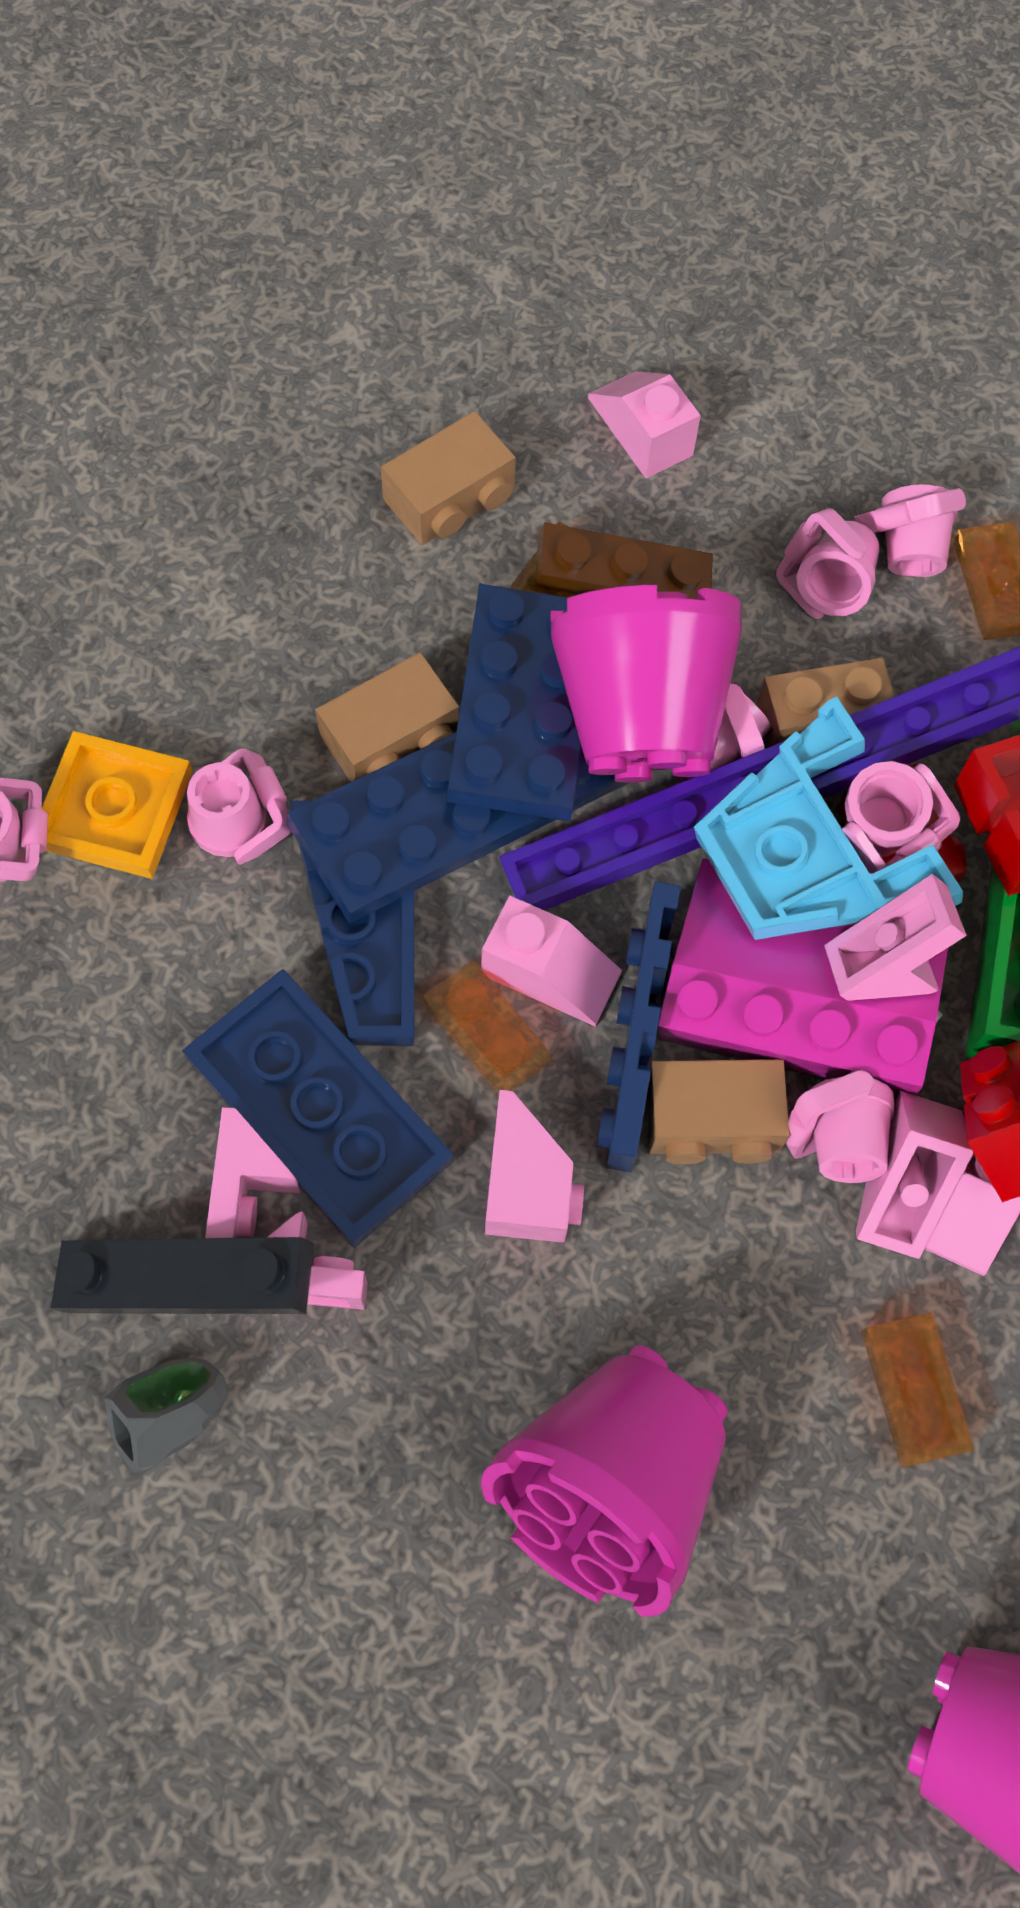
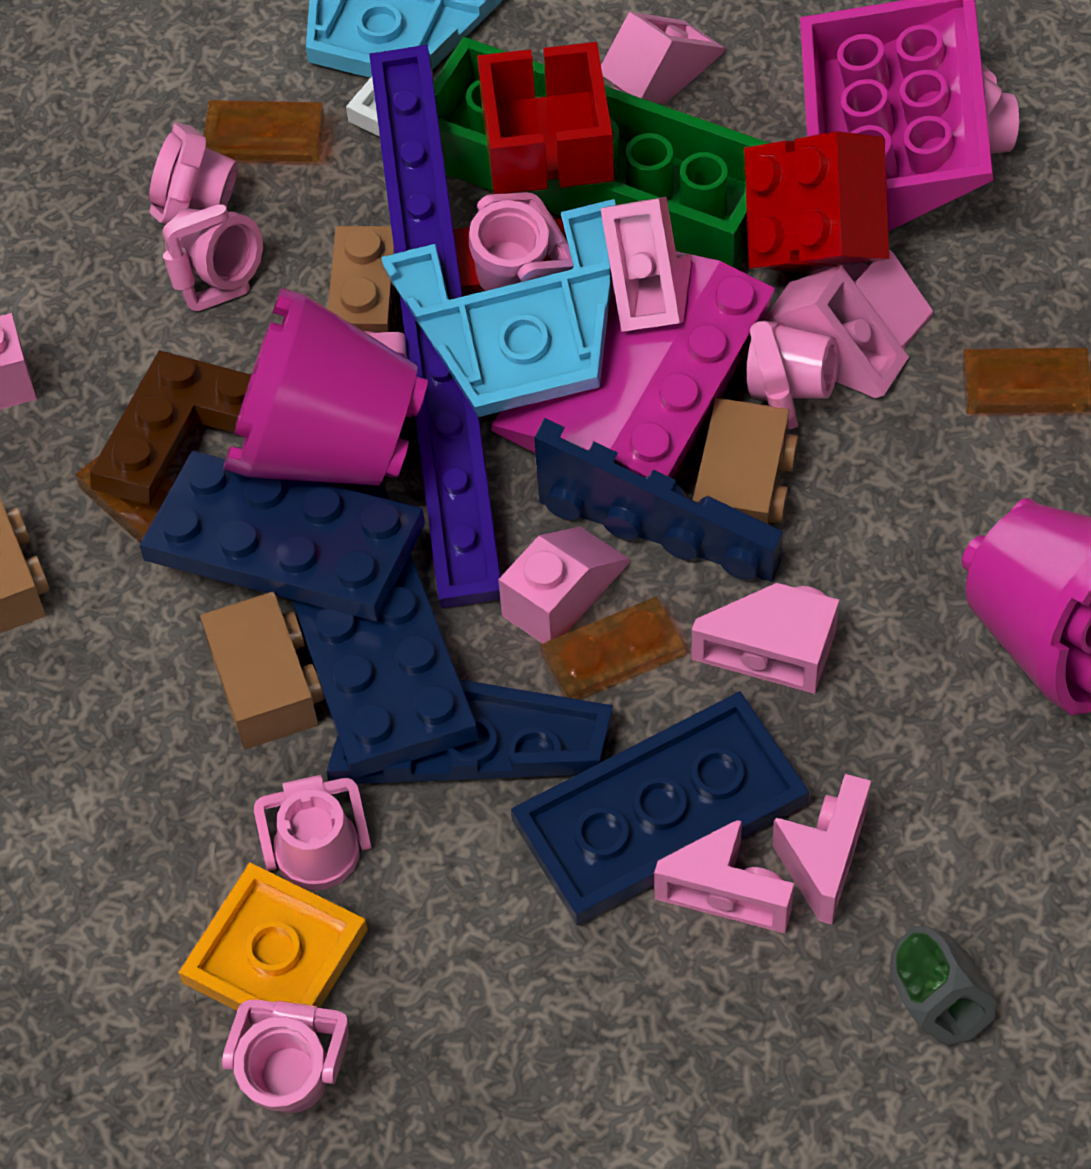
camera: 70 degrees left, 10 degrees down
(184, 1276) = (817, 936): black plate -> none

